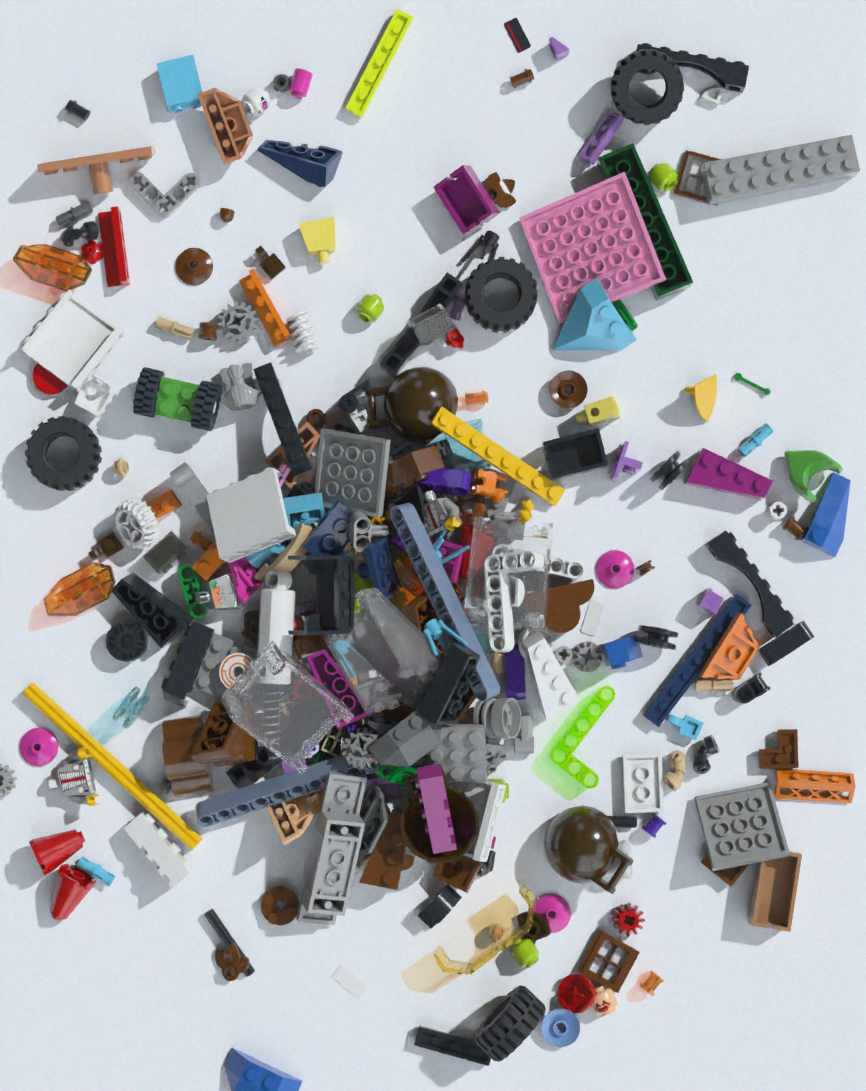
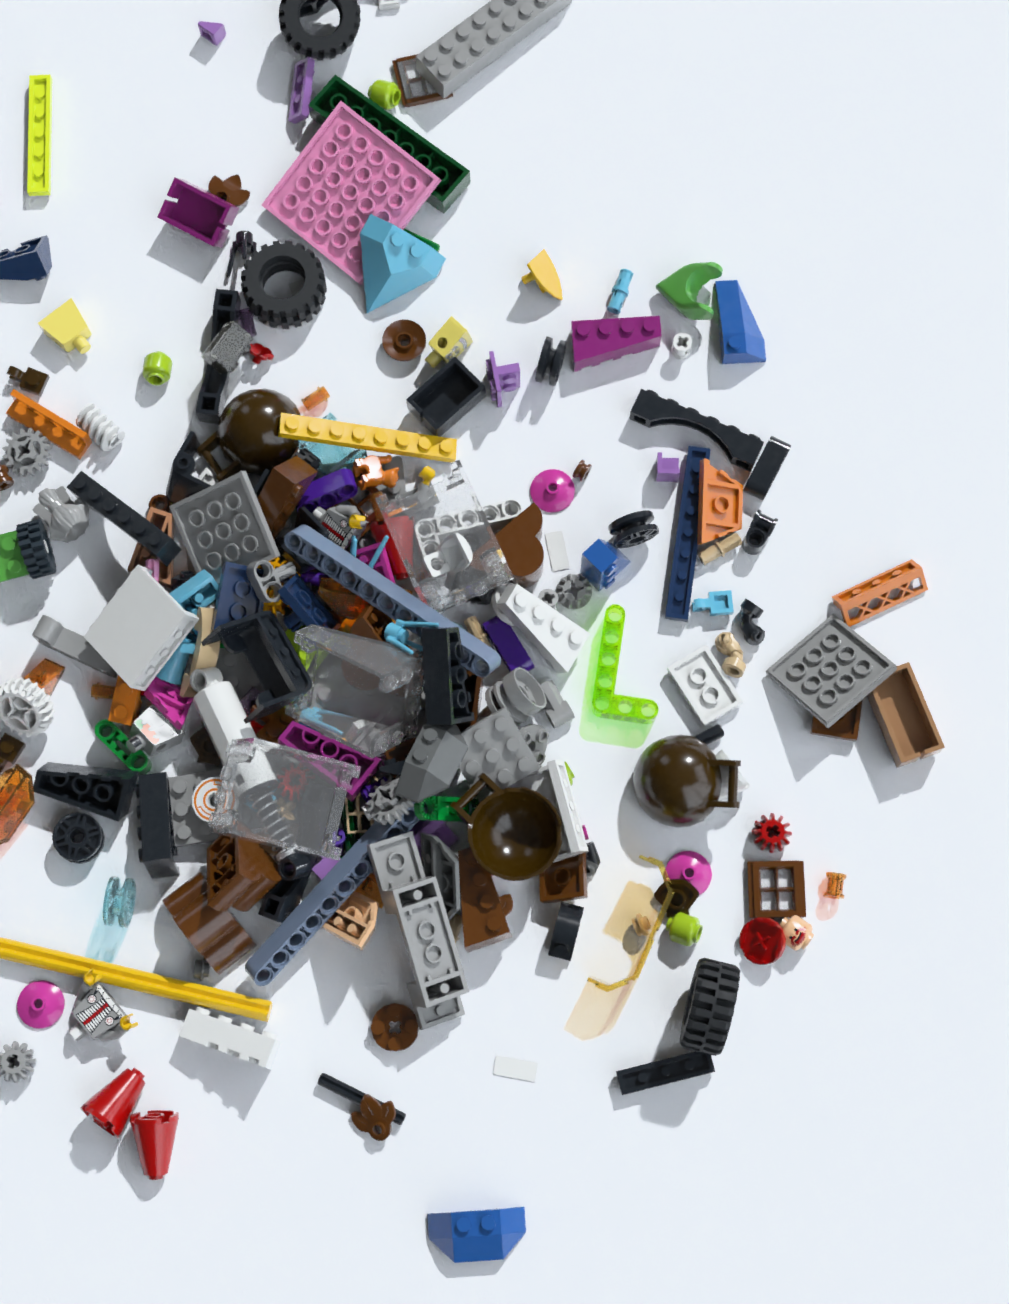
camera: 30 degrees left, 10 degrees down
(95, 871) = (173, 1102): medium azure pin -> none
(166, 553) = (73, 723): clear smoke brick -> none
(435, 808) = (501, 817): magenta wedge -> none
(503, 593) = (447, 557): white beam -> none
(517, 35) = (165, 42): black sticker -> none
(522, 78) = (191, 76): reddish brown pin -> none
(560, 1036) = (777, 993): medium blue dish -> none
(654, 825) = (741, 721): dark purple bush -> none
(738, 376) = (568, 242): green hinge -> none
(786, 753) = (832, 577): reddish brown plate -> none
(794, 528) = (709, 352): reddish brown bush -> none

